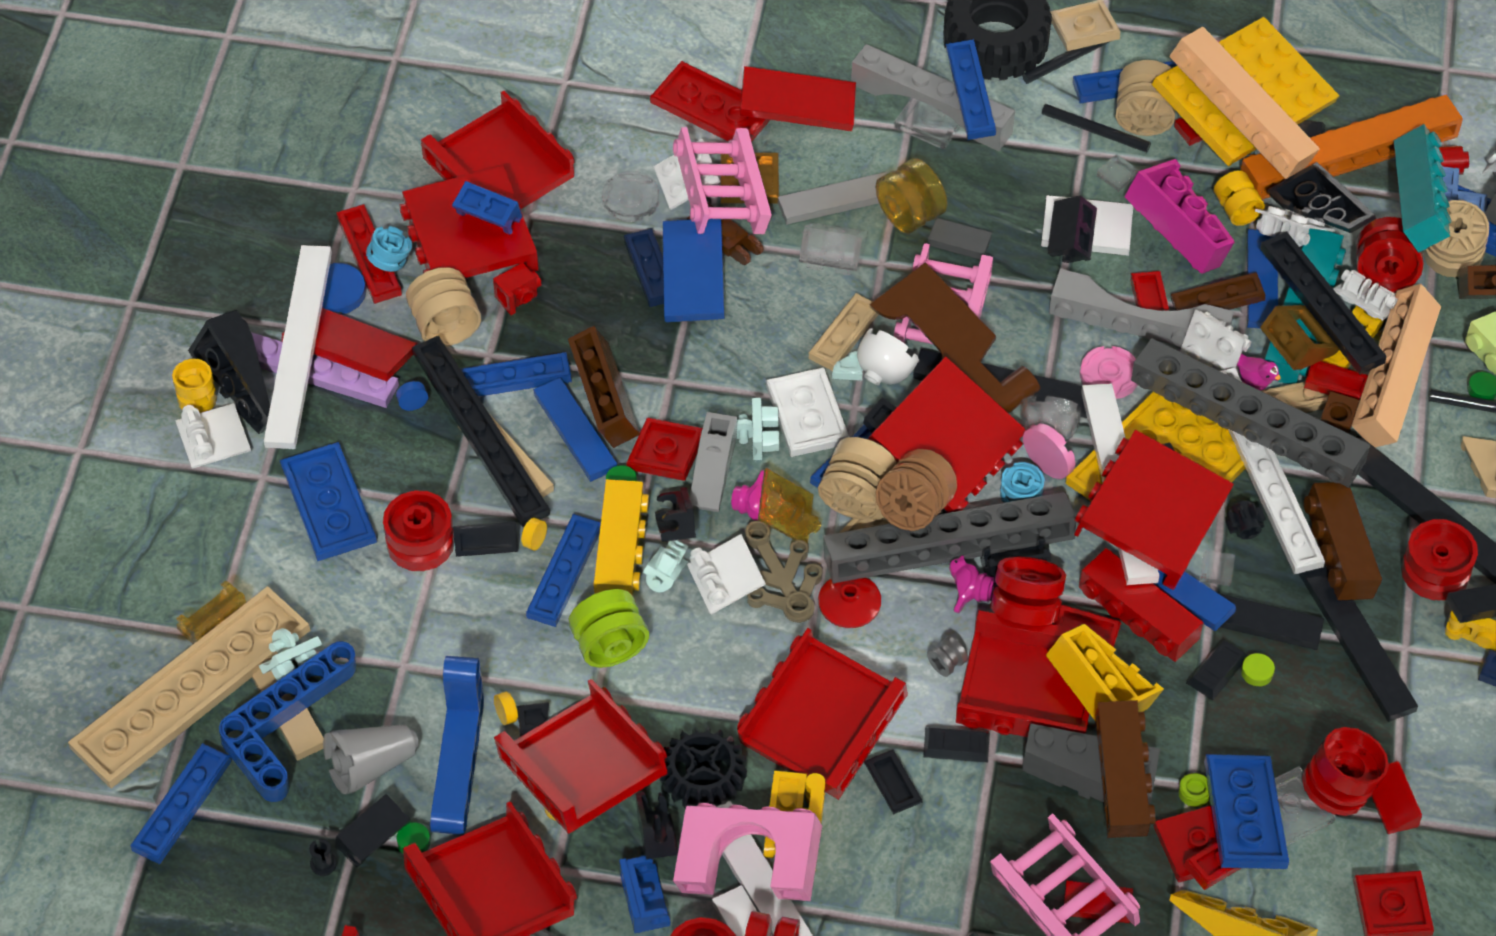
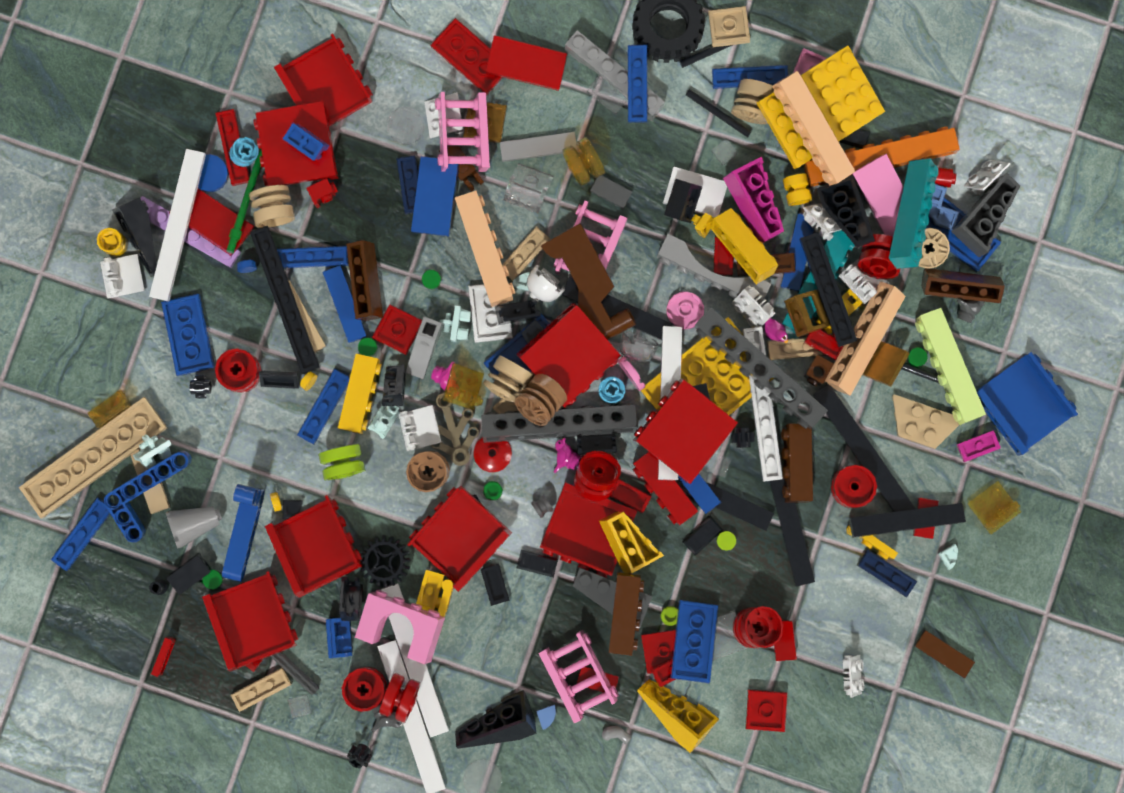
camera: 15 degrees right, 30 degrees up
(359, 562) = (200, 387): none -> black gear
(391, 344) = (235, 233): none -> green bar
(706, 380) = (431, 279): none -> green tile
(752, 624) = (418, 465): none -> medium nougat wheel
(783, 325) = (484, 248): none -> light nougat brick
(848, 402) = (516, 312): none -> black hinge
(862, 649) = (492, 490): none -> green tile
(1109, 257) = (703, 224): none -> yellow tile
(1179, 269) = (744, 246): none -> yellow brick
(1364, 174) = (881, 191): none -> bright pink tile
(1438, 392) = (886, 364): none -> pearl gold tile

